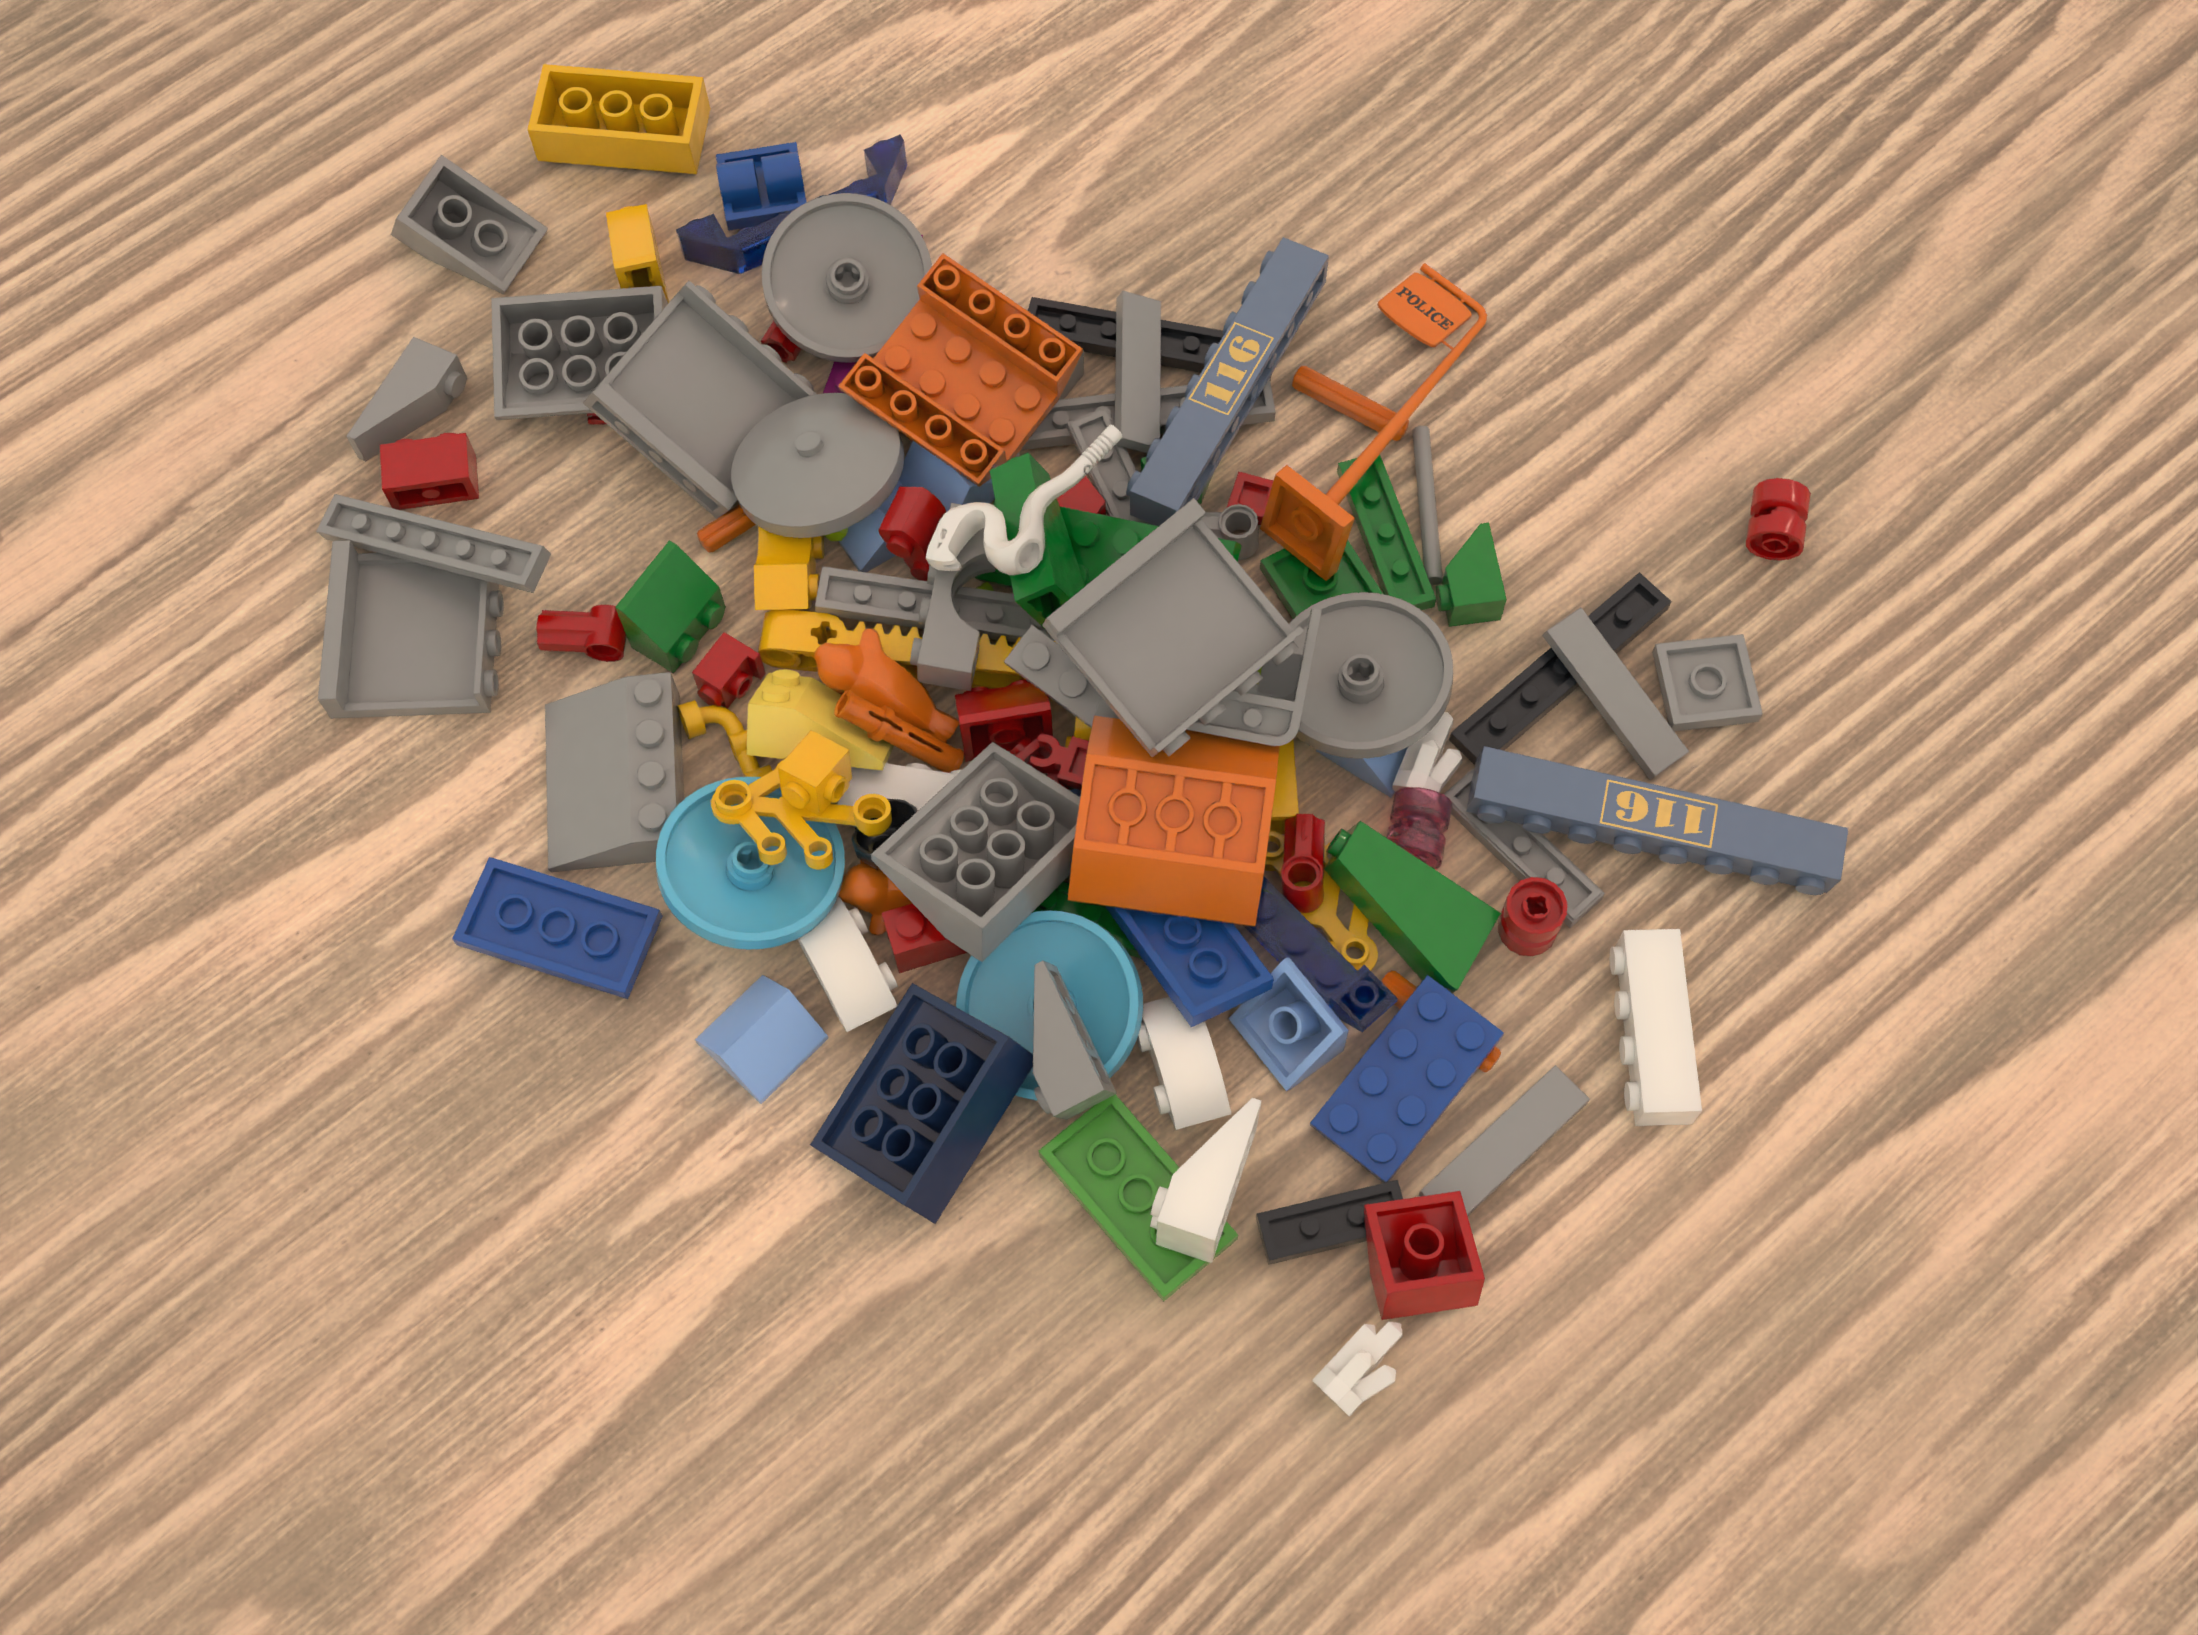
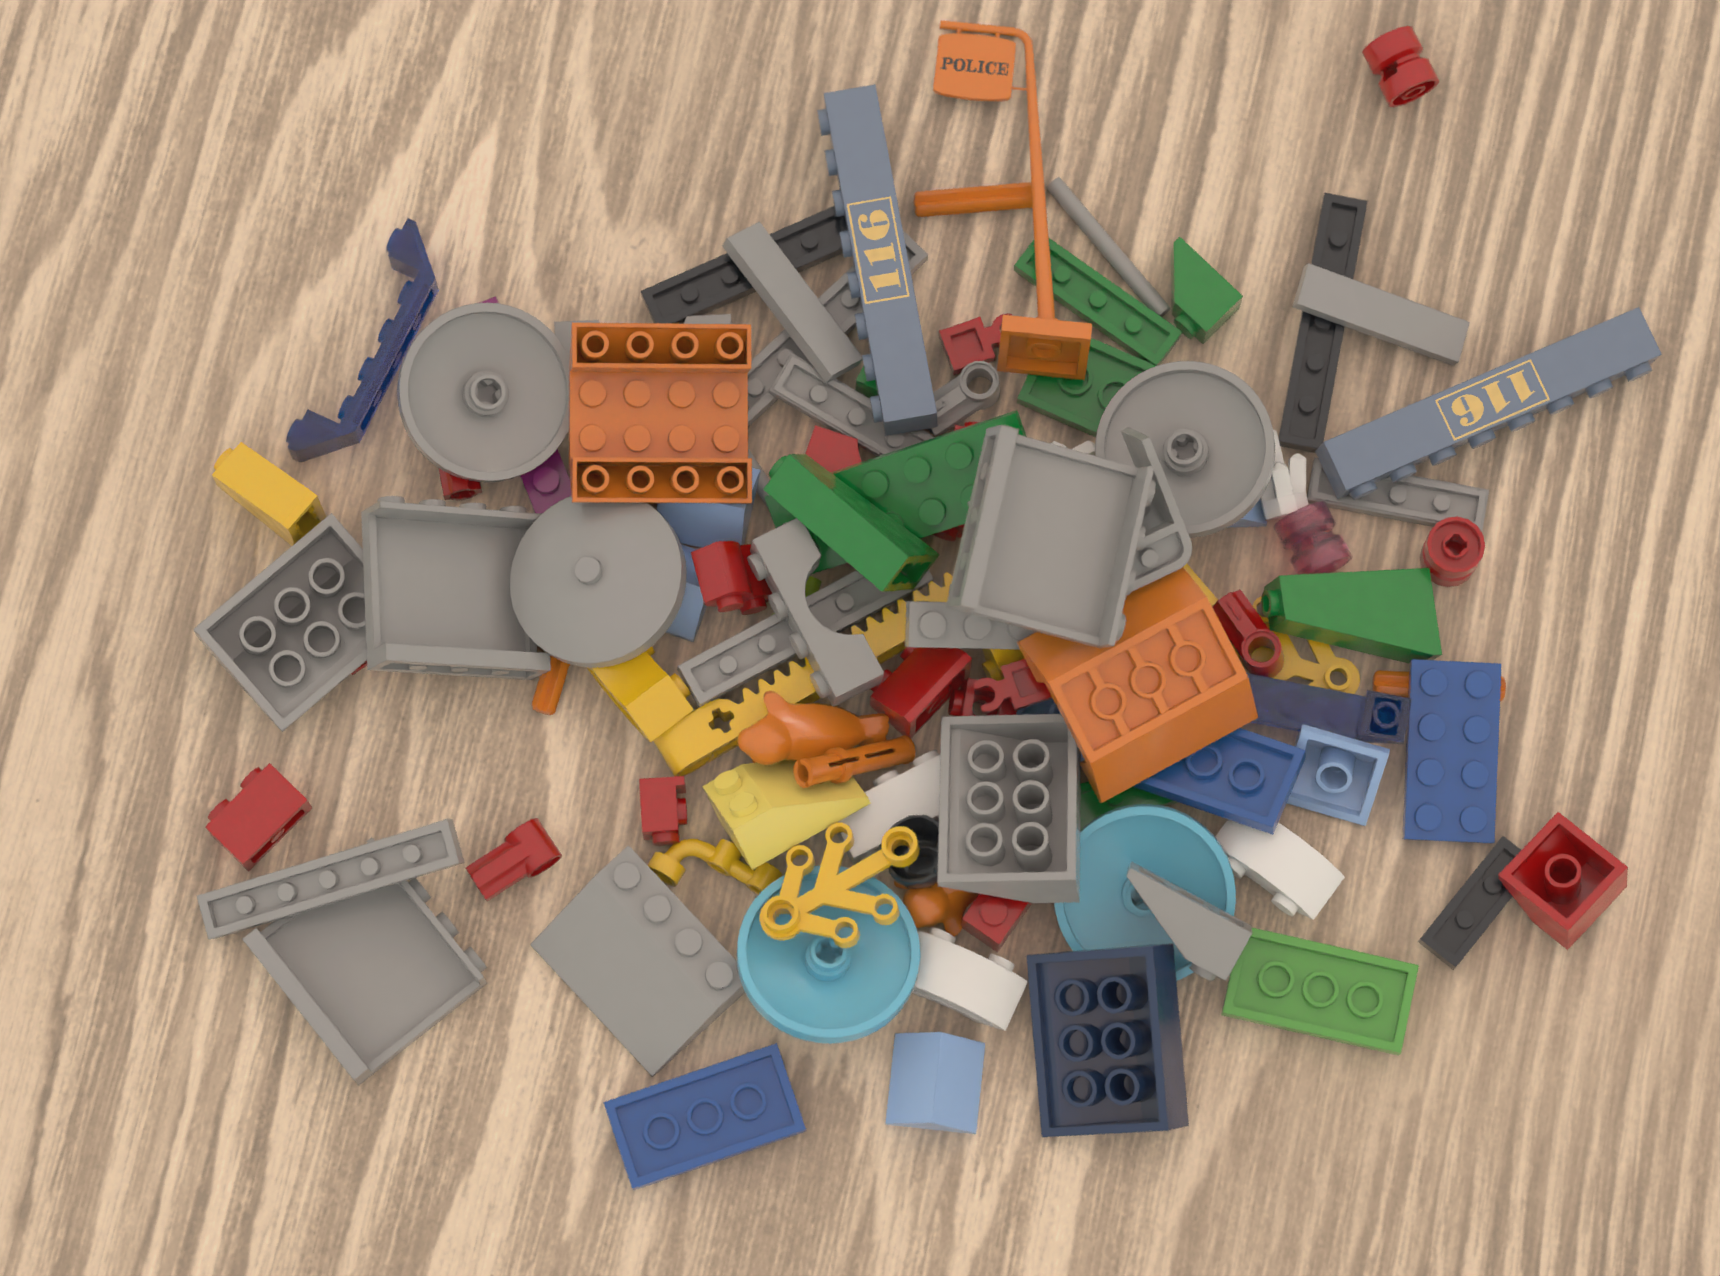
camera: 40 degrees left, 10 degrees up
(410, 396) = (181, 755): light grey slope -> none
(467, 227) = (90, 572): light grey slope -> none
(619, 119) = (141, 374): yellow brick -> none
(670, 608) = (579, 790): green slope -> none
(759, 184) = (316, 347): blue plate -> none
(815, 773) = (834, 848): yellow brick -> none
(1028, 547) = (865, 542): white animal -> none
(1202, 1190) = (1383, 957): white slope -> none
(1348, 1374) = (1577, 1005): white rock -> none
(1510, 1140) = (1558, 743): light grey tile -> none
(1656, 1028) = (1604, 572): white brick -> none
(1707, 682) = (1442, 251): light grey plate -> none

